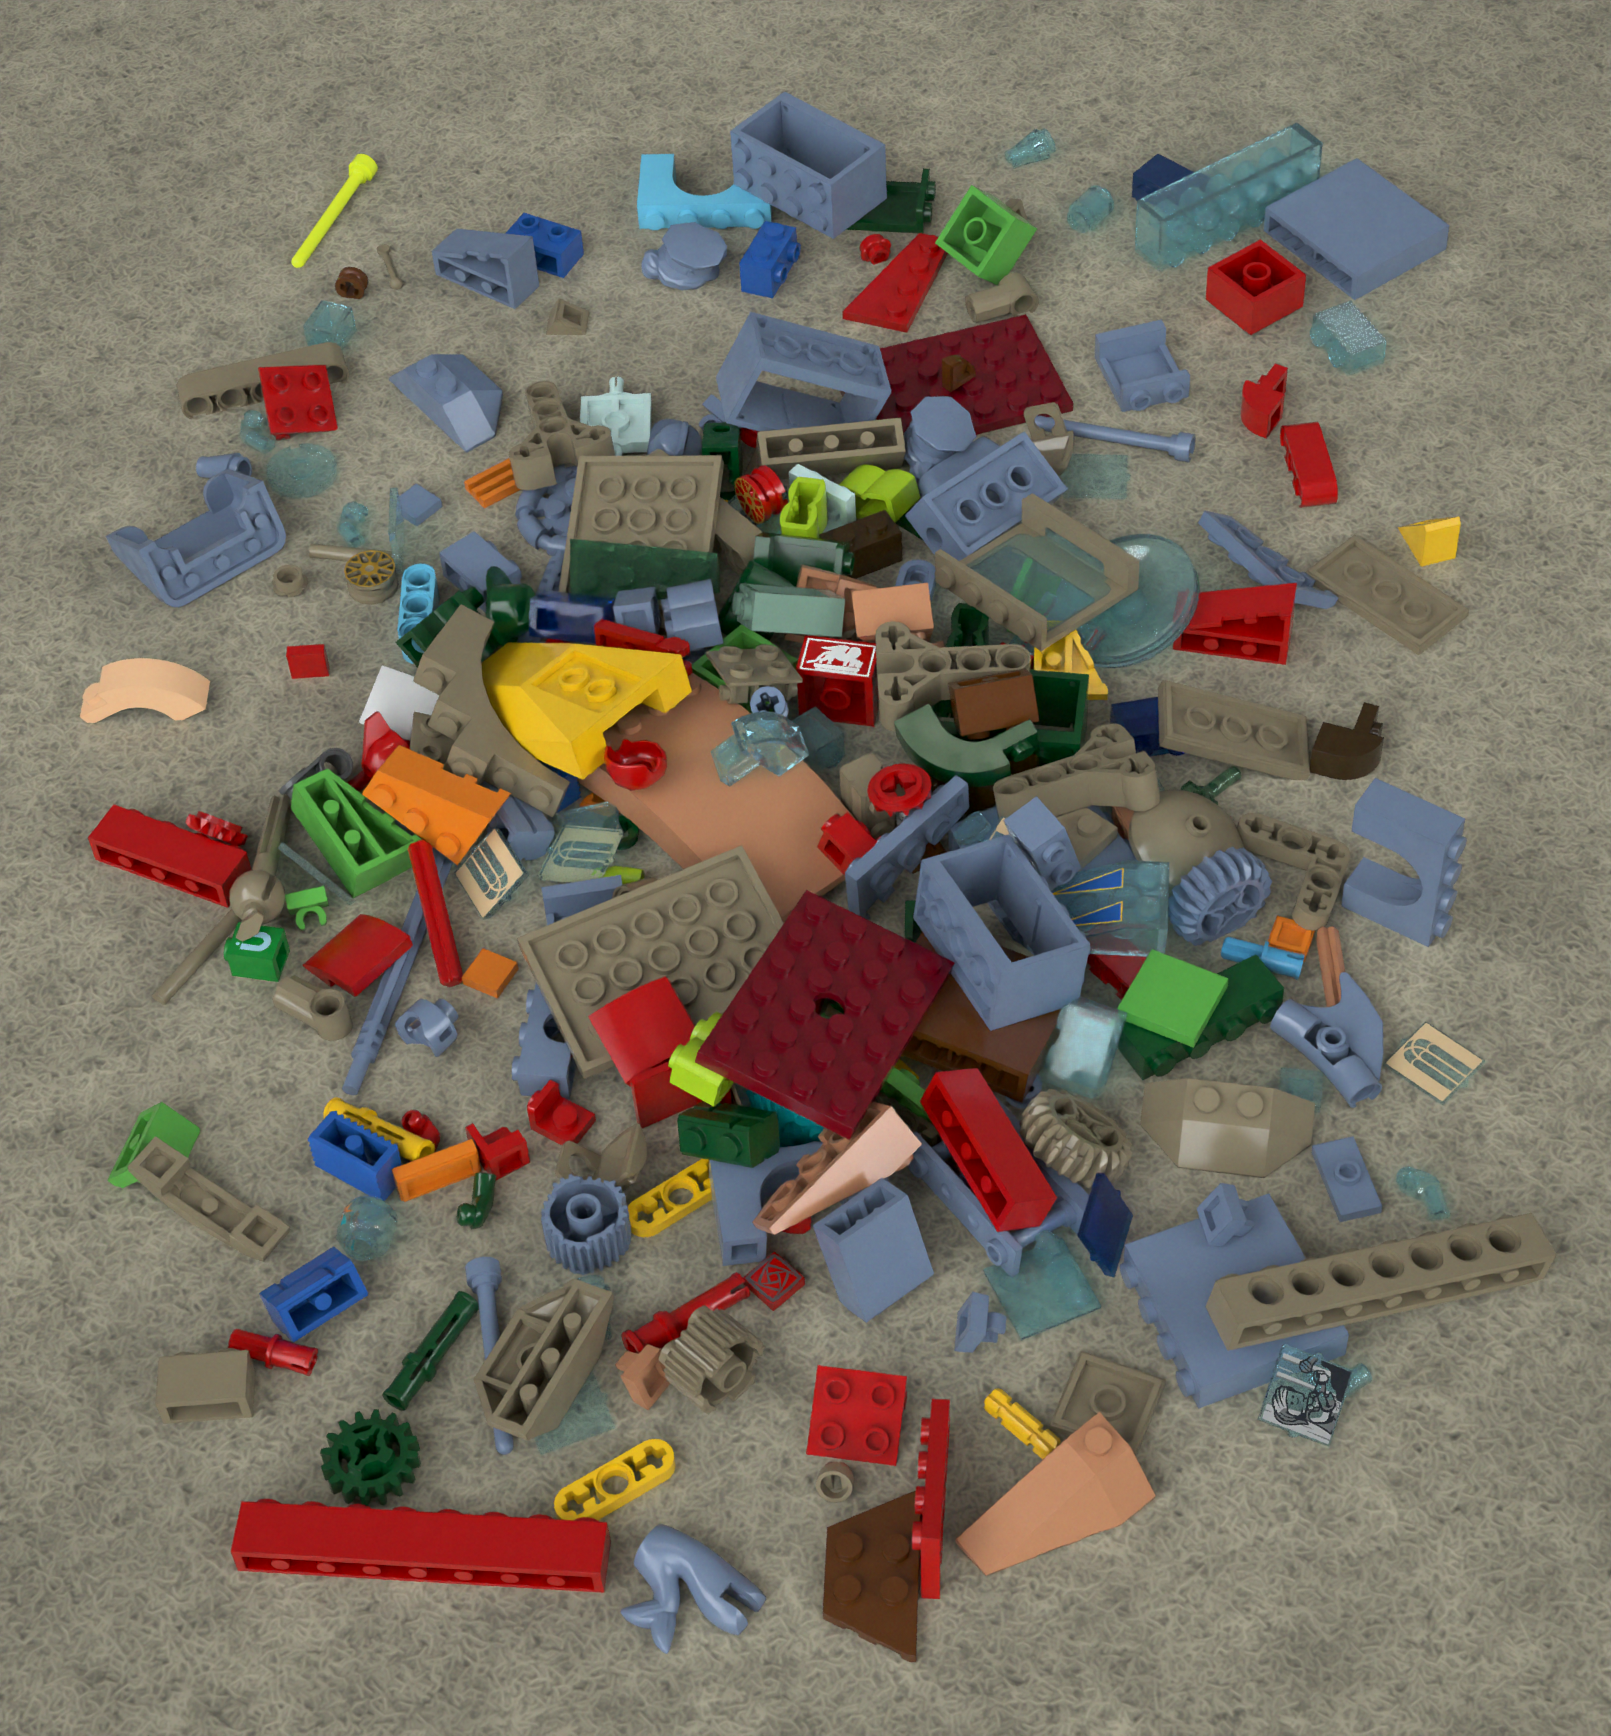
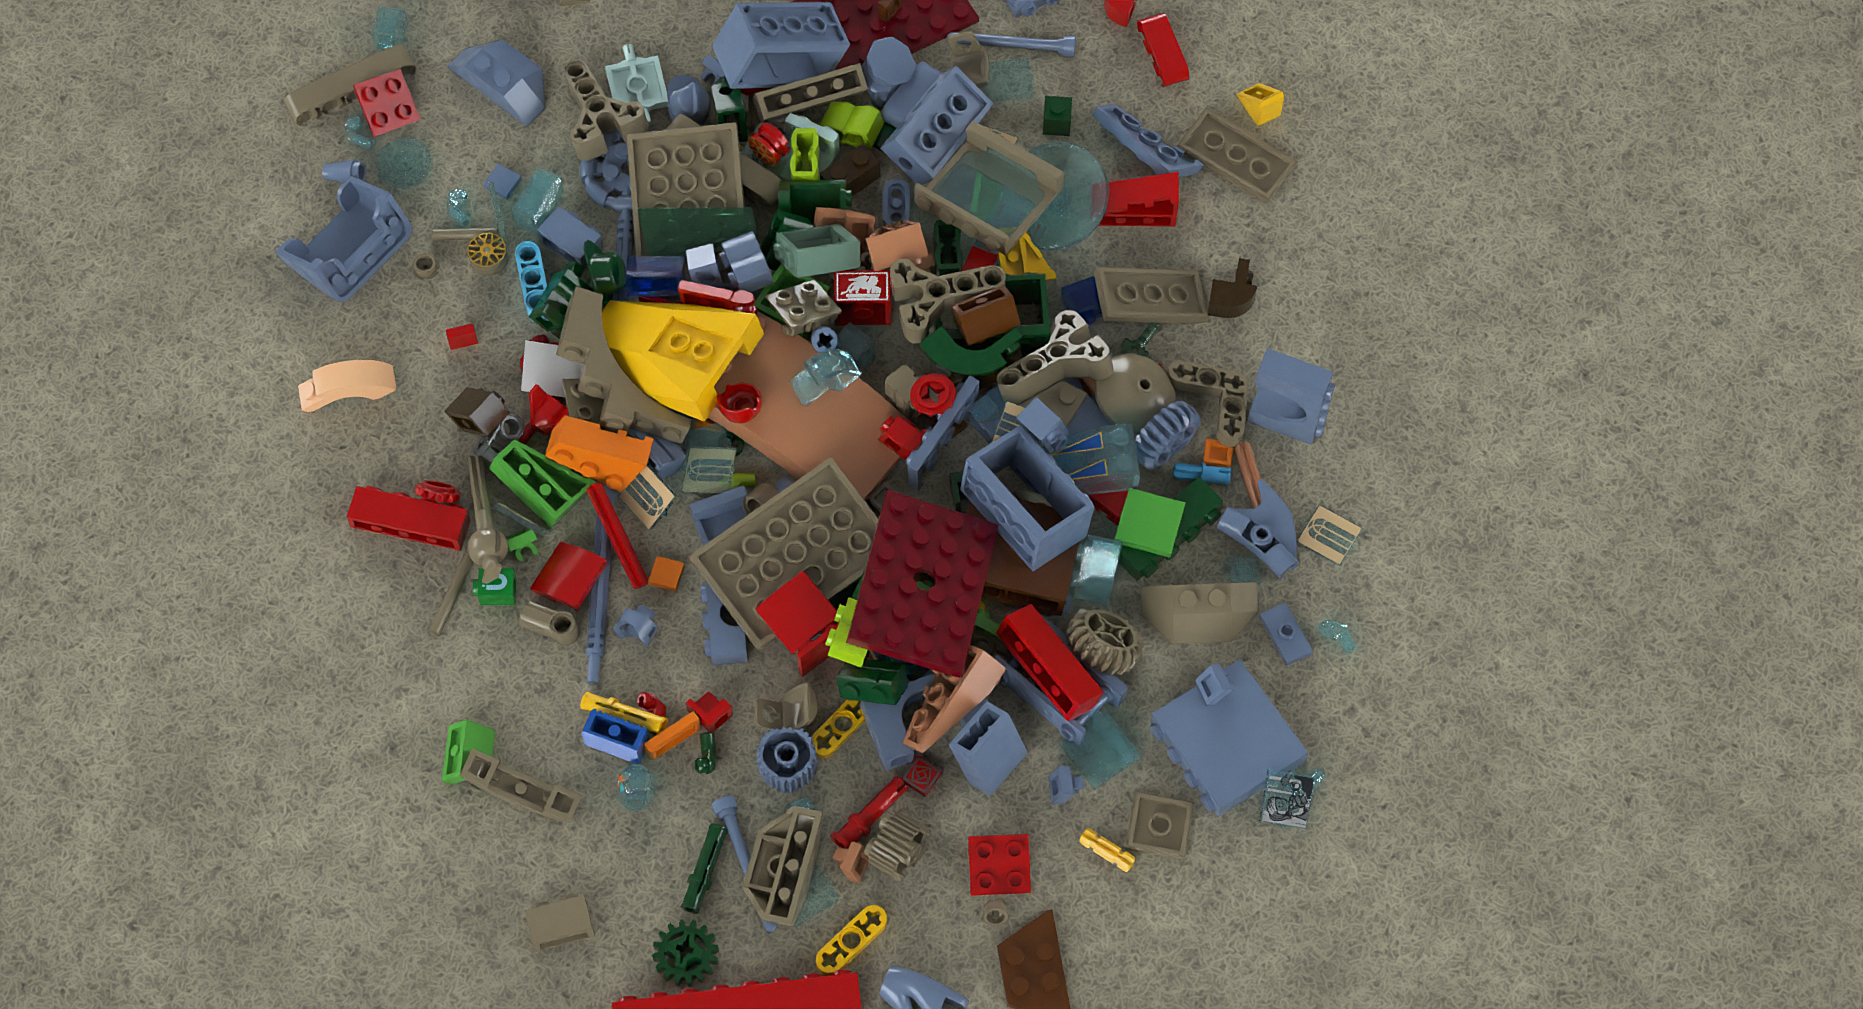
camera: 15 degrees left, 15 degrees up
(275, 1351) = (597, 888): red axle -> none
(297, 740) = (477, 411): none -> dark brown brick
(313, 1294) = (614, 843): blue brick -> none
(451, 521) = (537, 200): none -> clear light blue brick
(496, 476) = (541, 155): orange tile -> none
(558, 1117) = (745, 679): red bracket -> none
(932, 1497) = (1062, 917): red wing -> none
(1071, 1494) = (1148, 897): nougat wedge -> none
(1105, 1225) = (1135, 699): clear blue piece -> none
(1151, 512) = (1057, 116): none -> dark green brick
(1378, 1280) = (1242, 761): dark tan brick -> none

